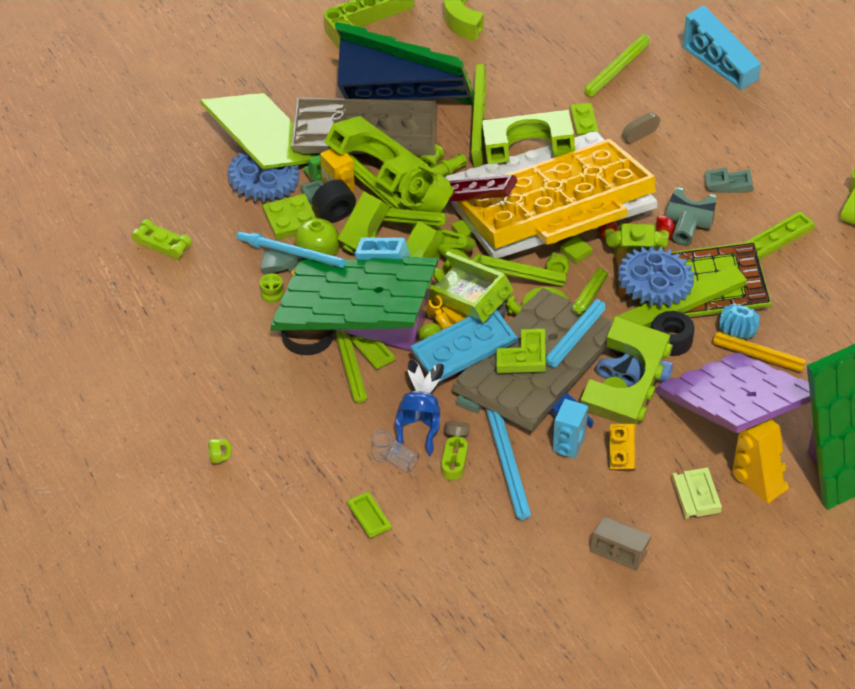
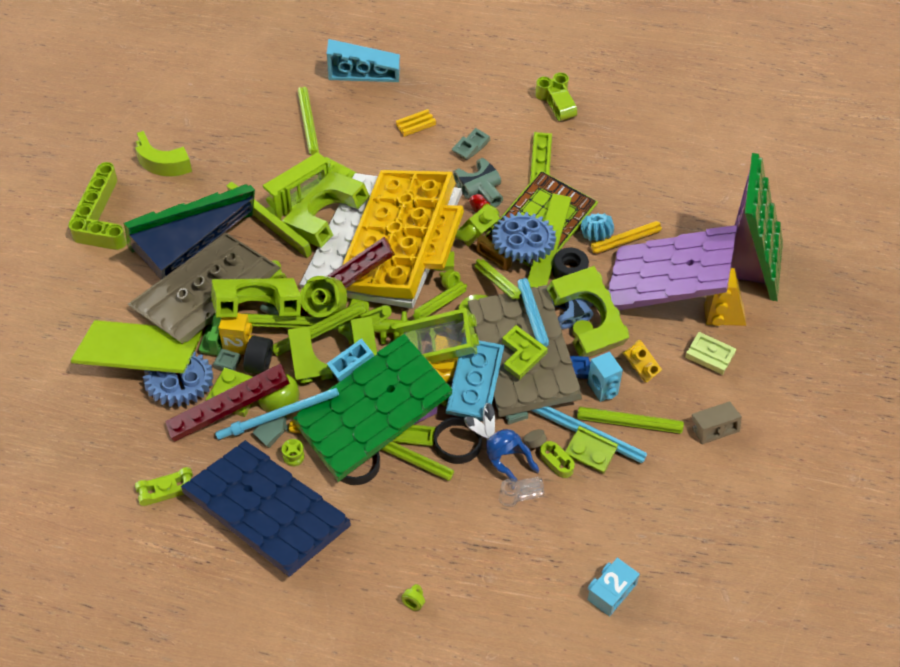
camera: 50 degrees left, 5 degrees up
(203, 306) = (267, 507): none -> dark blue piece
(269, 214) = (227, 402): none -> dark red plate
(364, 574) = (613, 586): none -> medium azure brick
(369, 515) = (560, 545): lime tile -> none
(391, 362) = (455, 459): none -> black tyre
(447, 167) = (295, 270): lime pin -> none
(489, 473) = (591, 449): none -> lime plate
(522, 98) = (295, 184): none -> lime door
(554, 482) = (630, 420): none -> lime axle
(641, 127) = (379, 150): dark tan tile -> none
(706, 130) = (414, 120): none -> yellow tile

